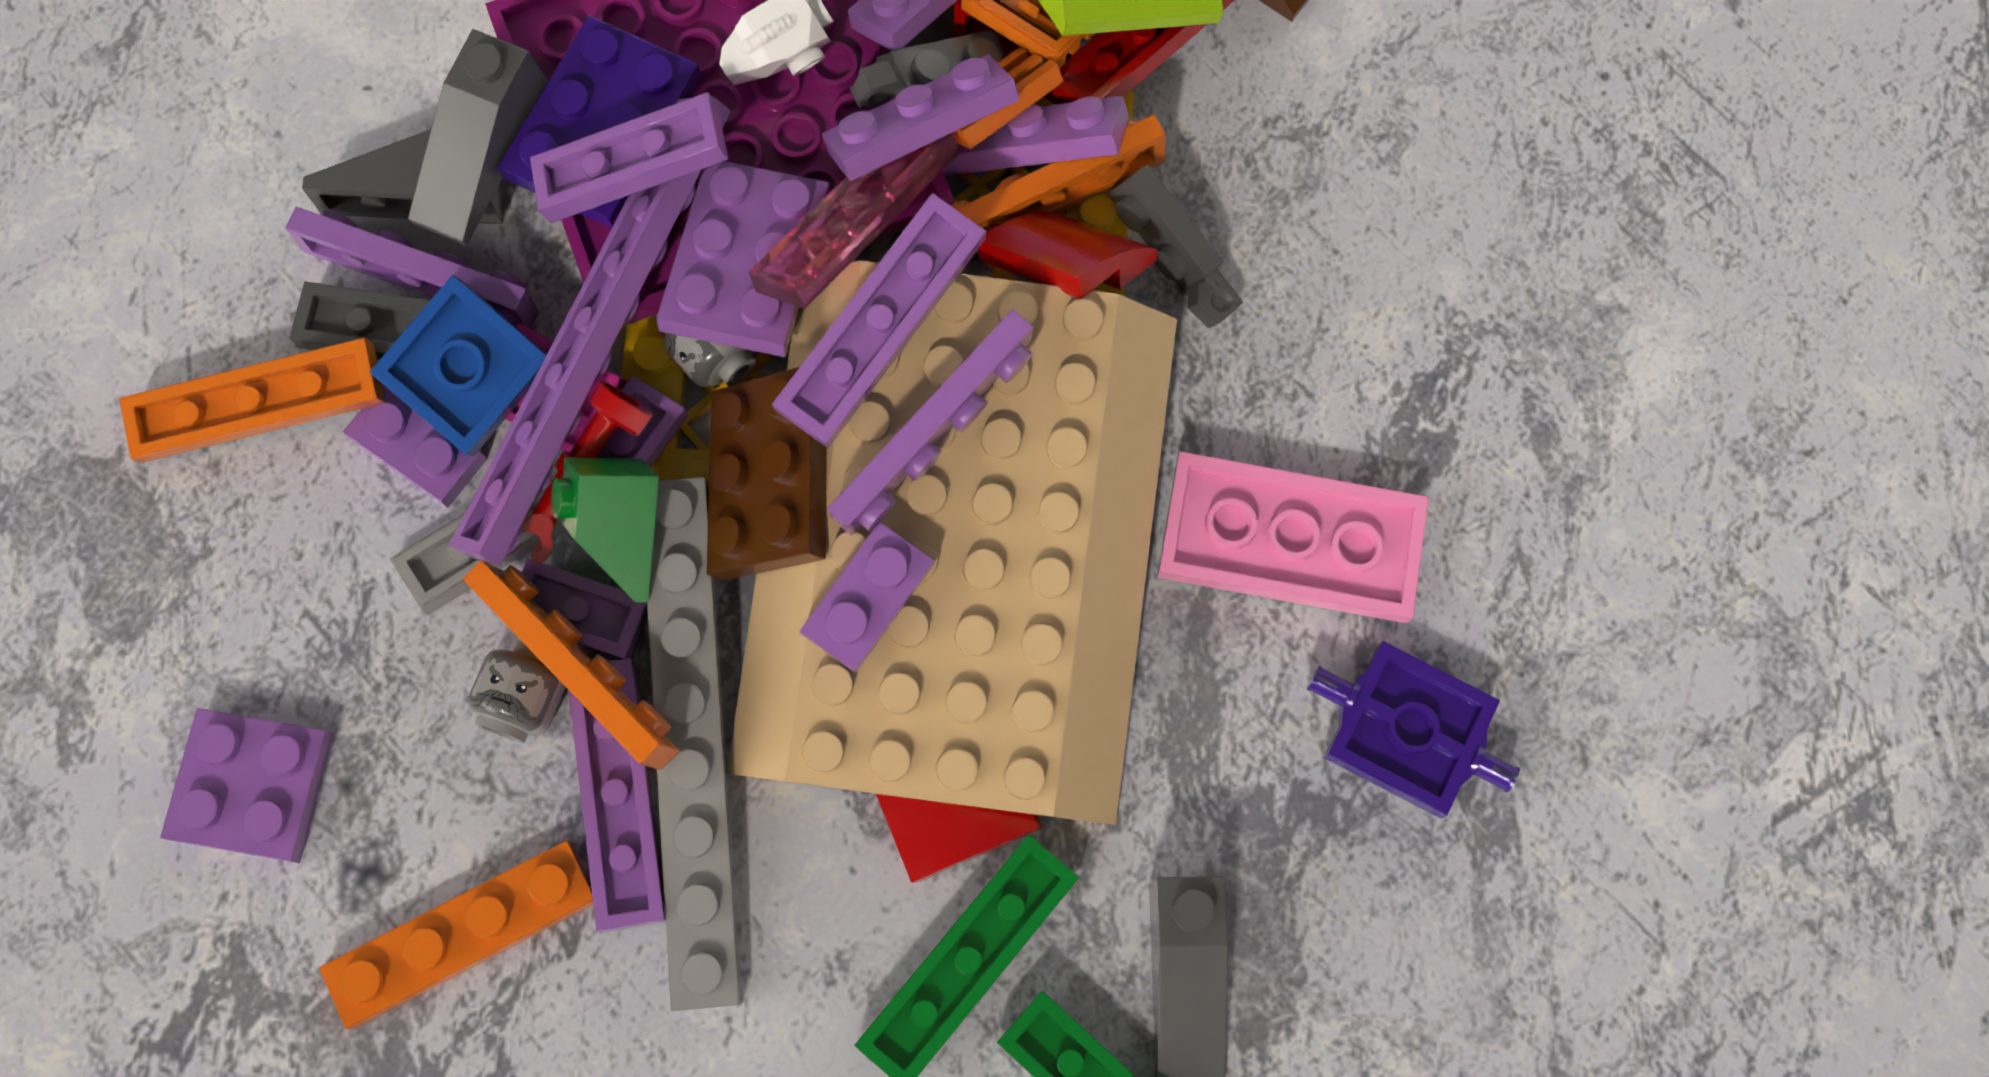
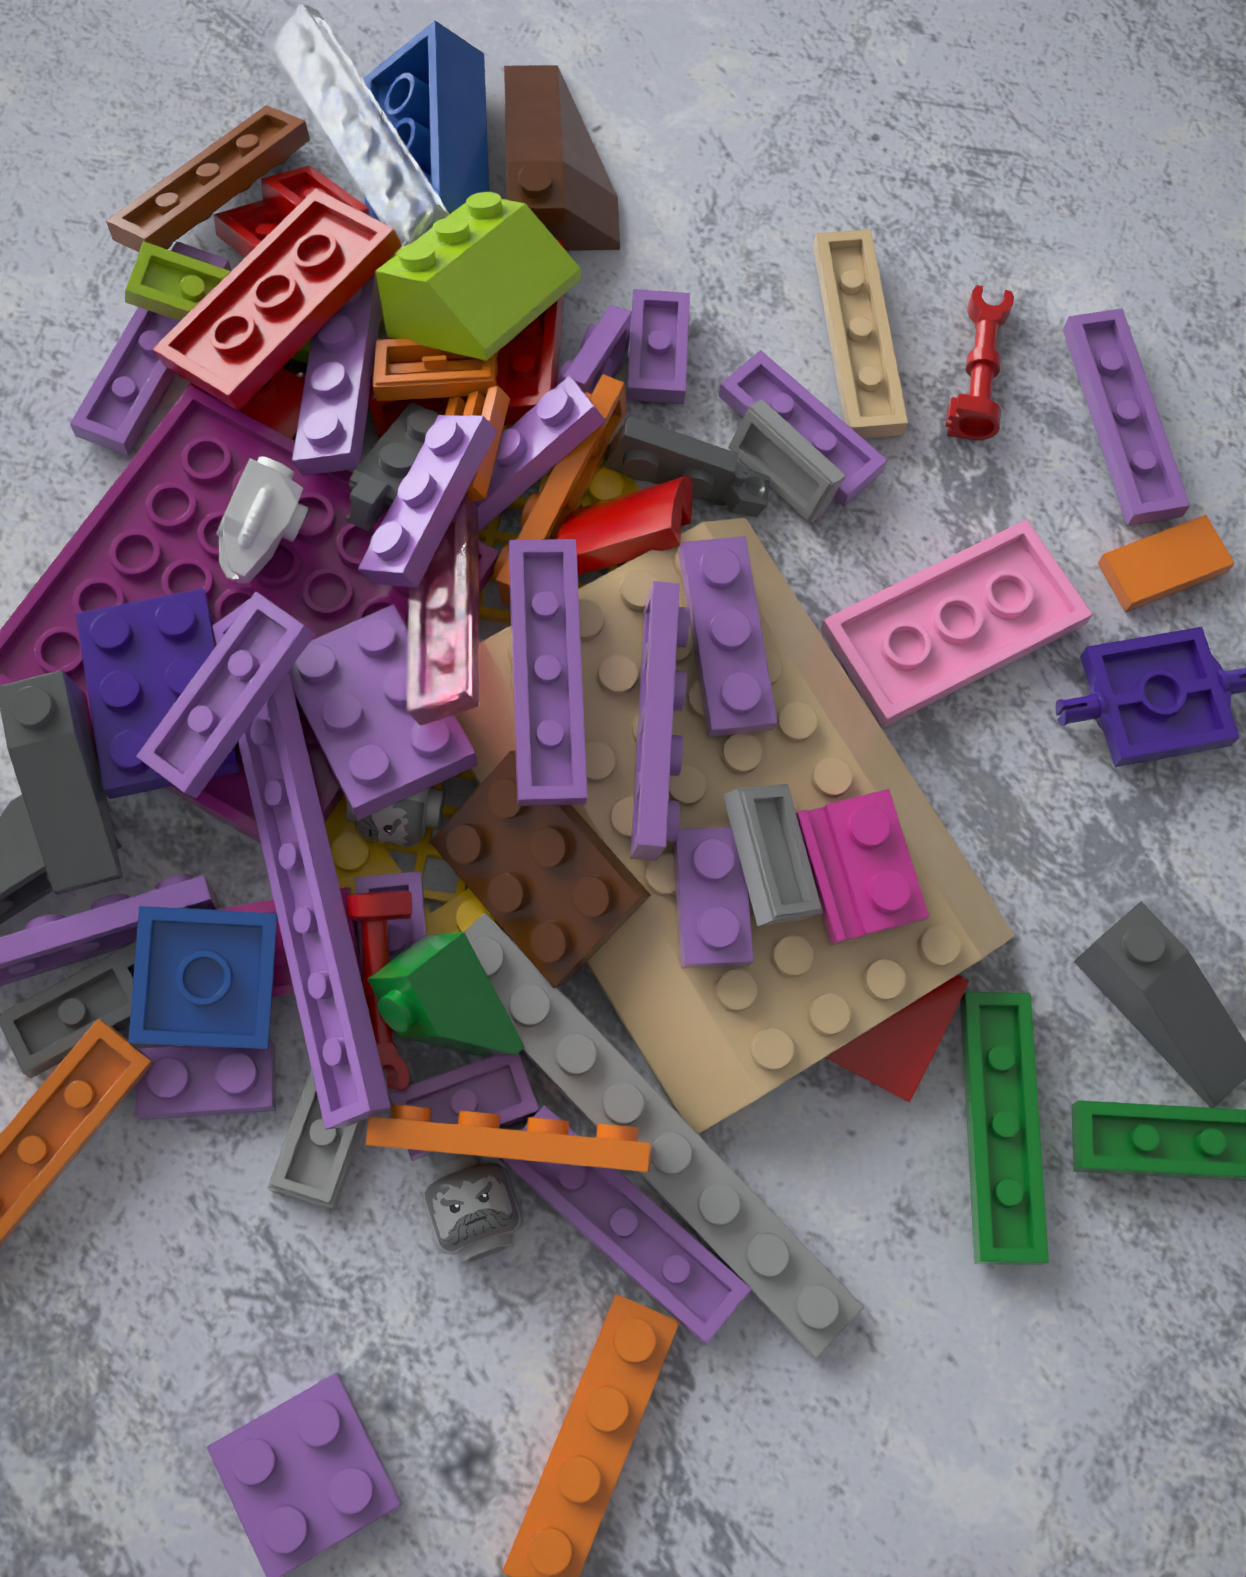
camera: 40 degrees left, 5 degrees down
(939, 600) = (772, 854): none -> light grey tile
(1006, 665) = (861, 867): none -> dark pink plate
(1052, 400) = (727, 636): none -> medium lavender plate
(1185, 100) = (601, 350): none -> medium lavender plate
(1245, 126) = (658, 346): none -> medium lavender plate
(1267, 299) = (794, 465): none -> light grey tile
(1307, 281) = (831, 436): none -> medium lavender plate
(1428, 236) = (860, 334): none -> tan plate
(1469, 378) = (975, 414): none -> red piece
(1525, 625) = (1165, 563): none -> orange tile
(1602, 475) = (1125, 417): none -> medium lavender plate

